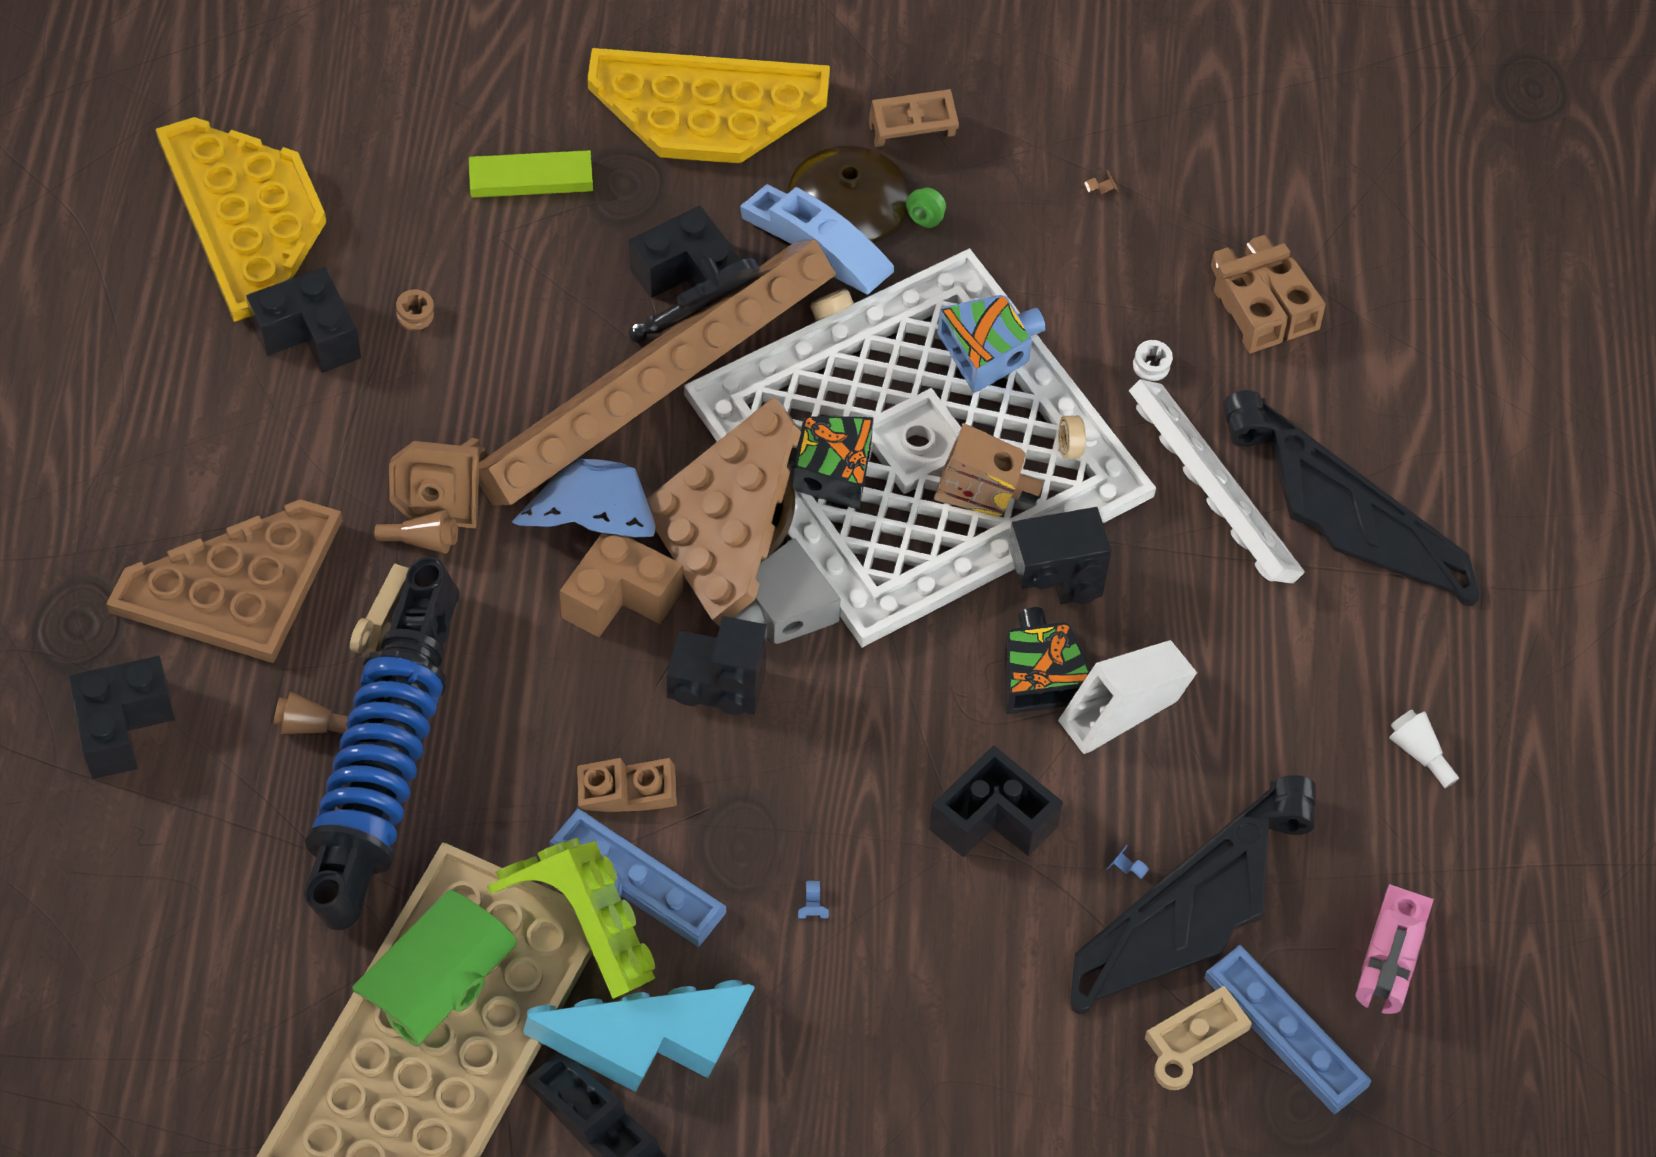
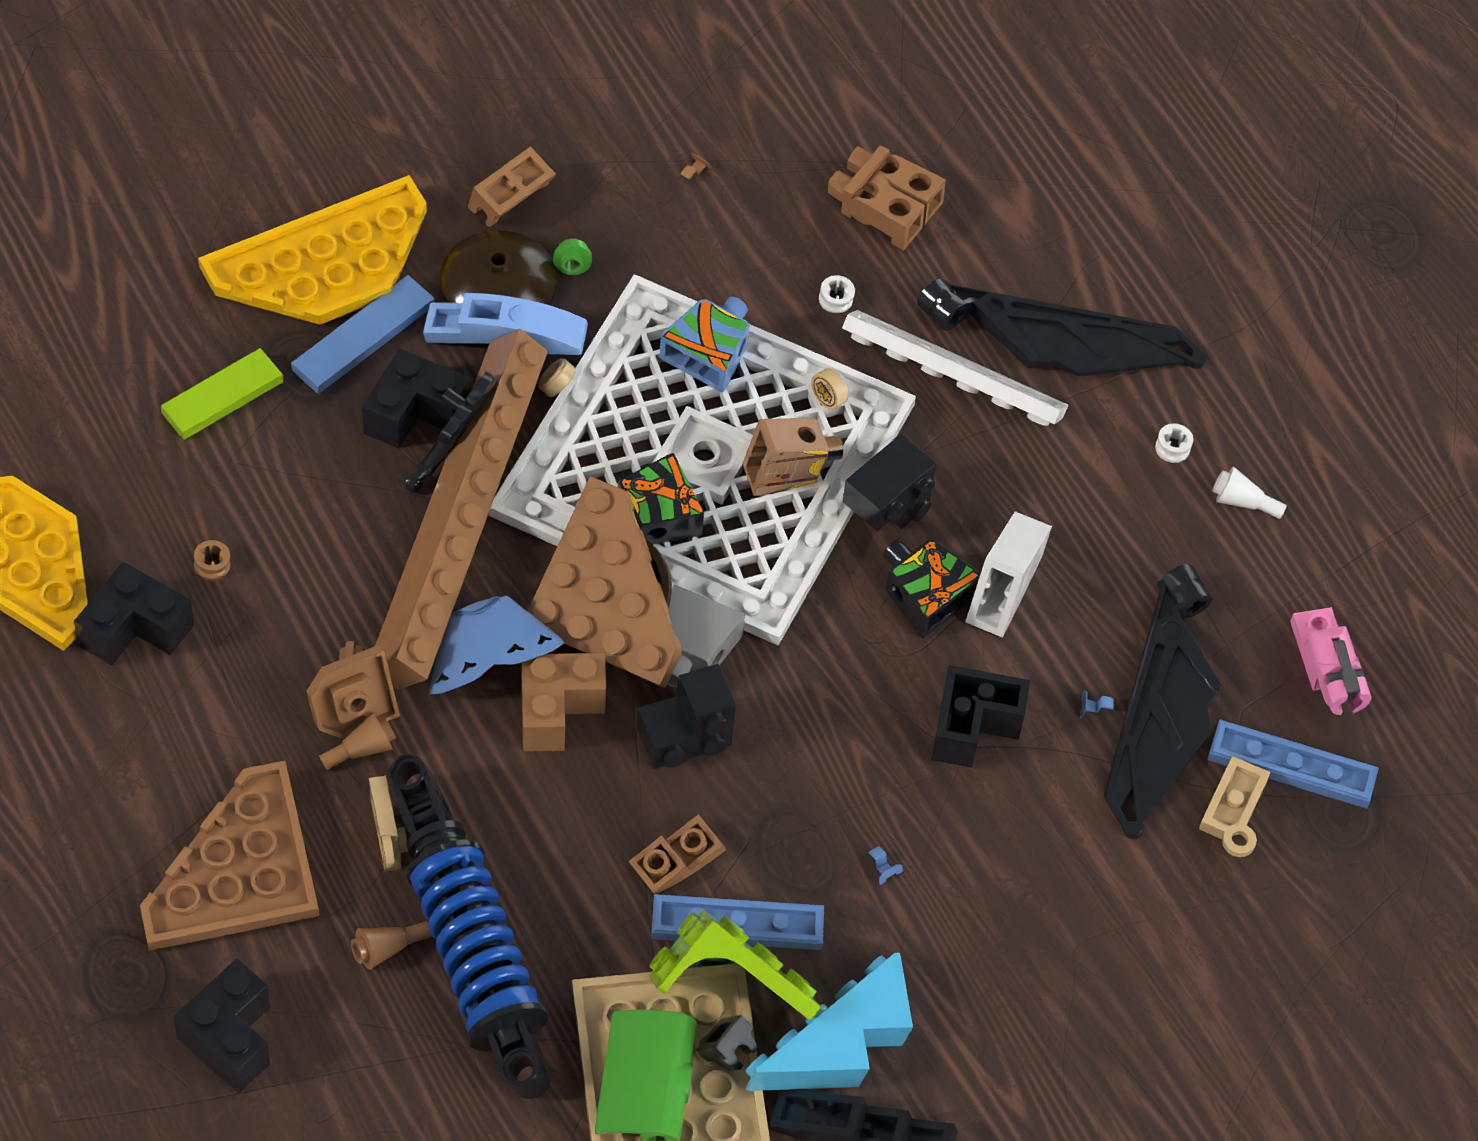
camera: 35 degrees left, 0 degrees up
(537, 970) = (724, 1039): none -> black tile
(689, 183) = (362, 334): none -> medium blue tile
(1381, 650) = (1170, 453): none -> white bush

